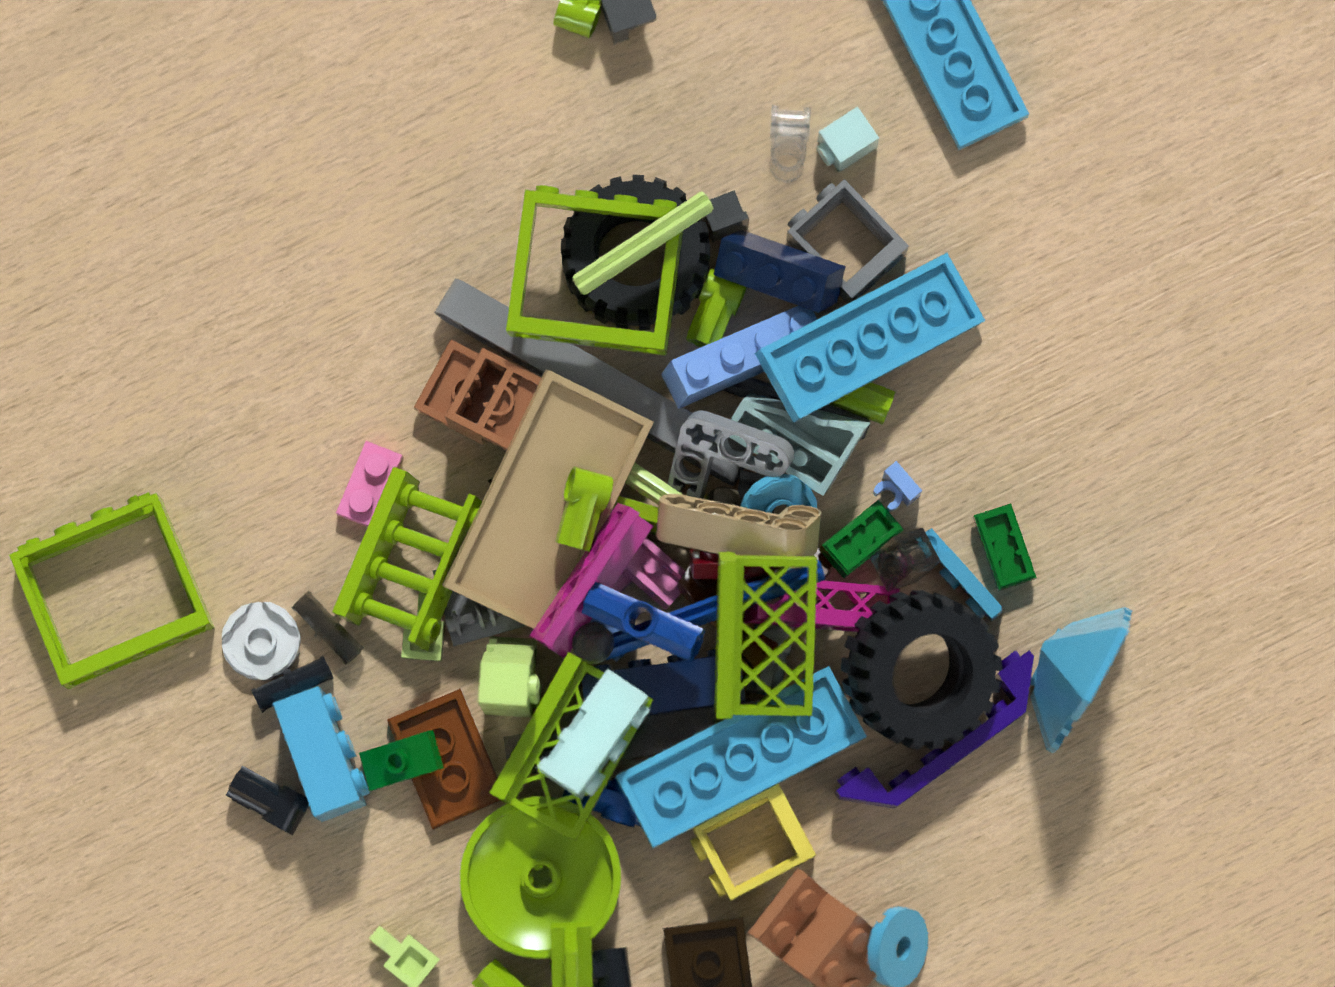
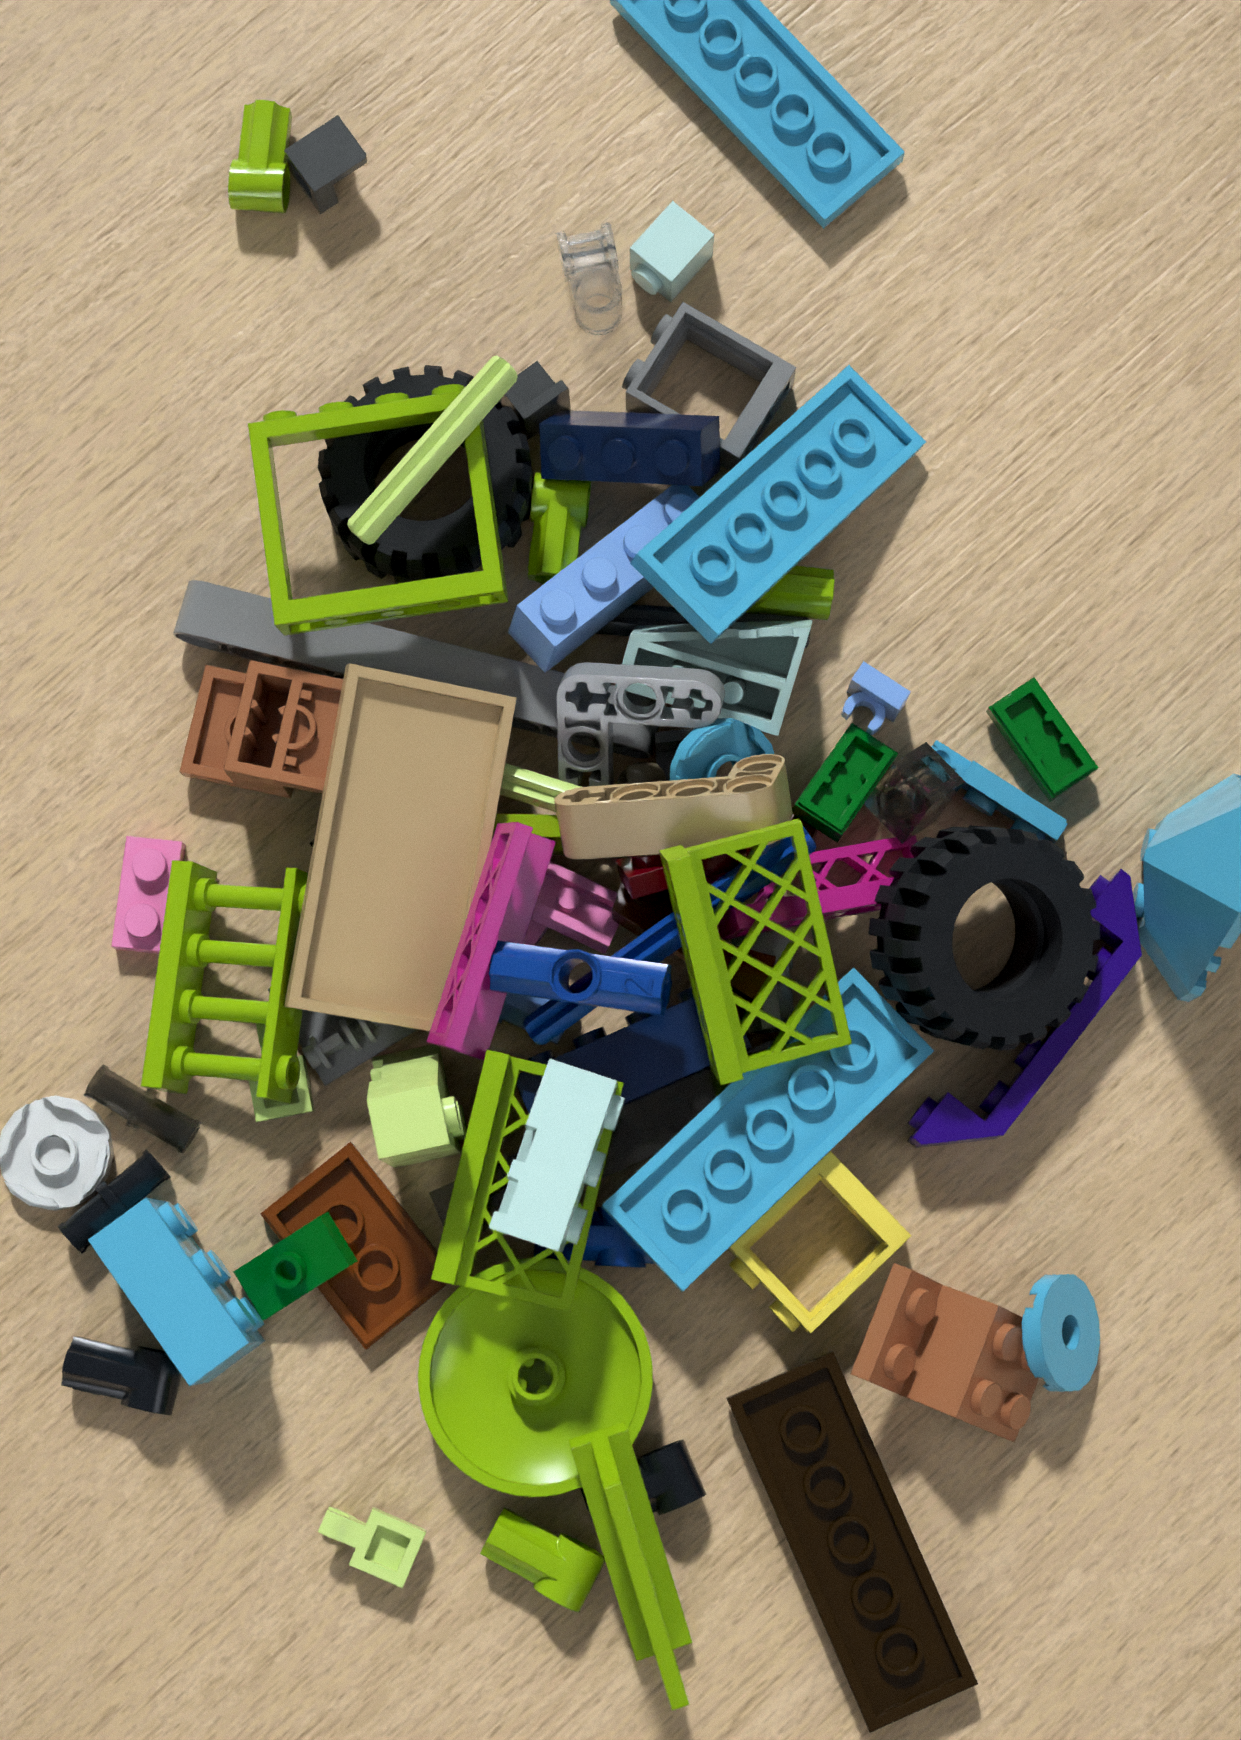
camera: 15 degrees left, 0 degrees up
(585, 498) = (451, 826): lime piece -> none
(593, 643) = (518, 1027): clear smoke tile -> none

